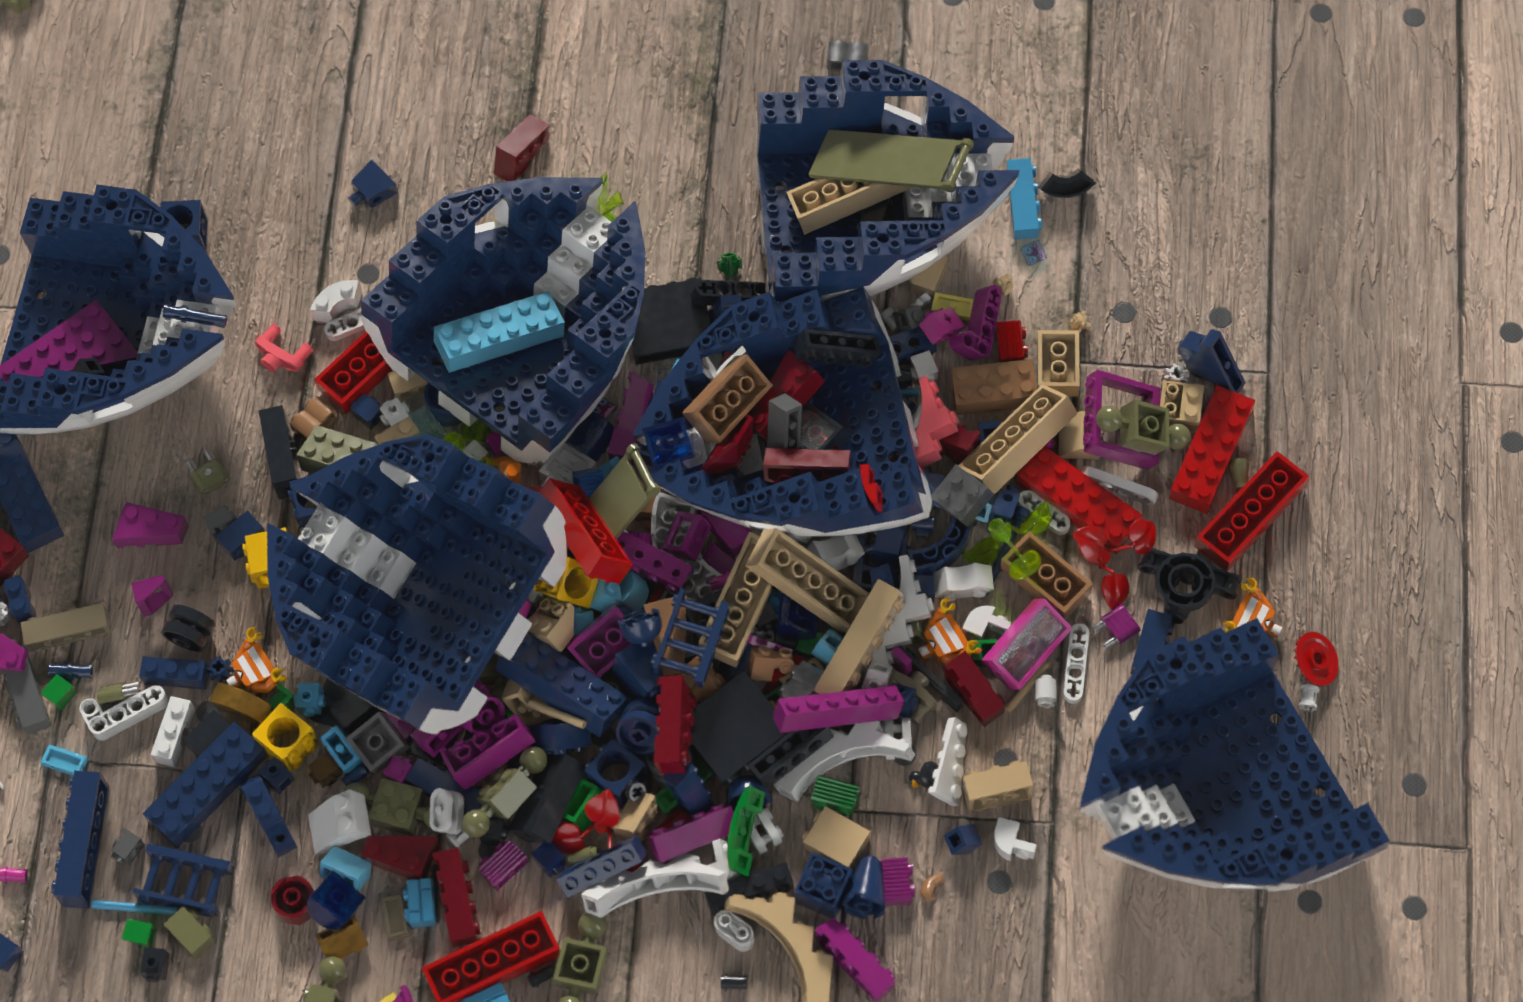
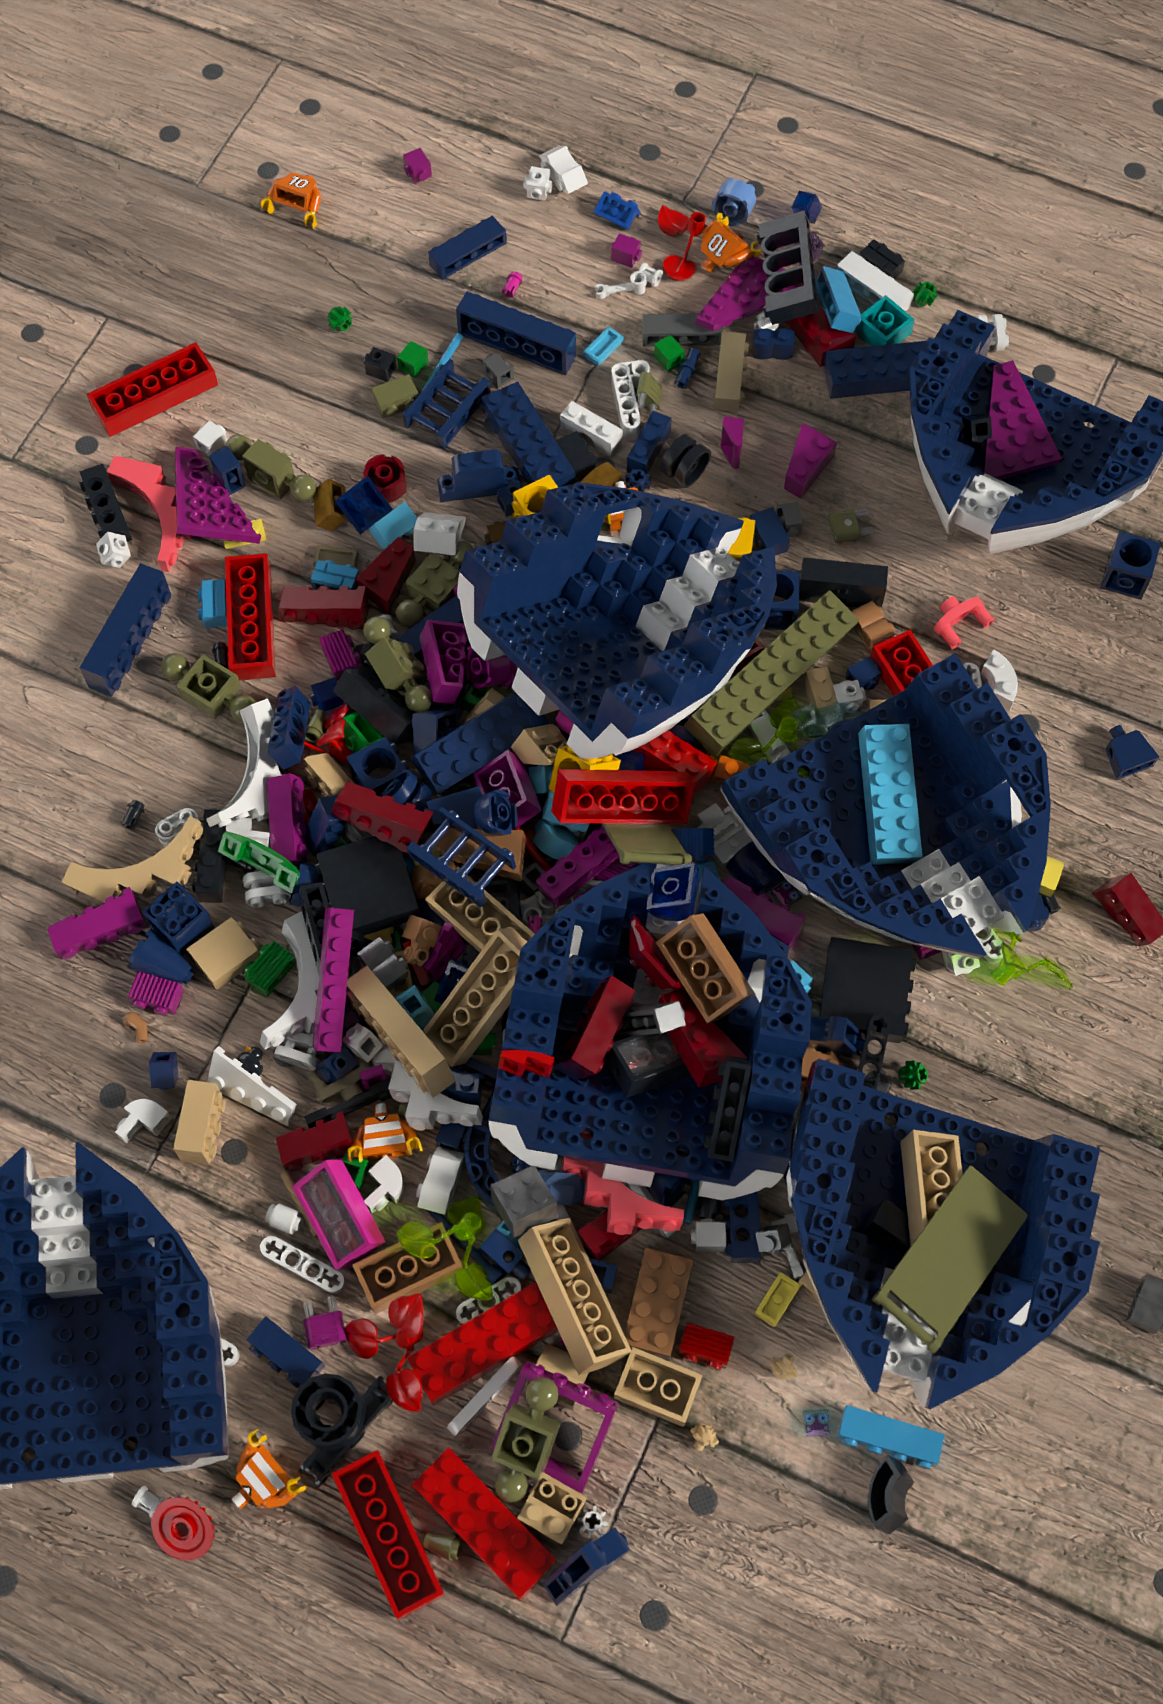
camera: 105 degrees right, 0 degrees up
(190, 315) = (989, 491): dark blue pin -> none
(446, 811) = (403, 612): white brick -> none
(557, 714) = (444, 729): tan bar -> none
(640, 791) = (345, 773): black bush -> none
(941, 325) = (750, 1270): dark pink brick -> none
(978, 338) = (744, 1317): magenta beam -> none

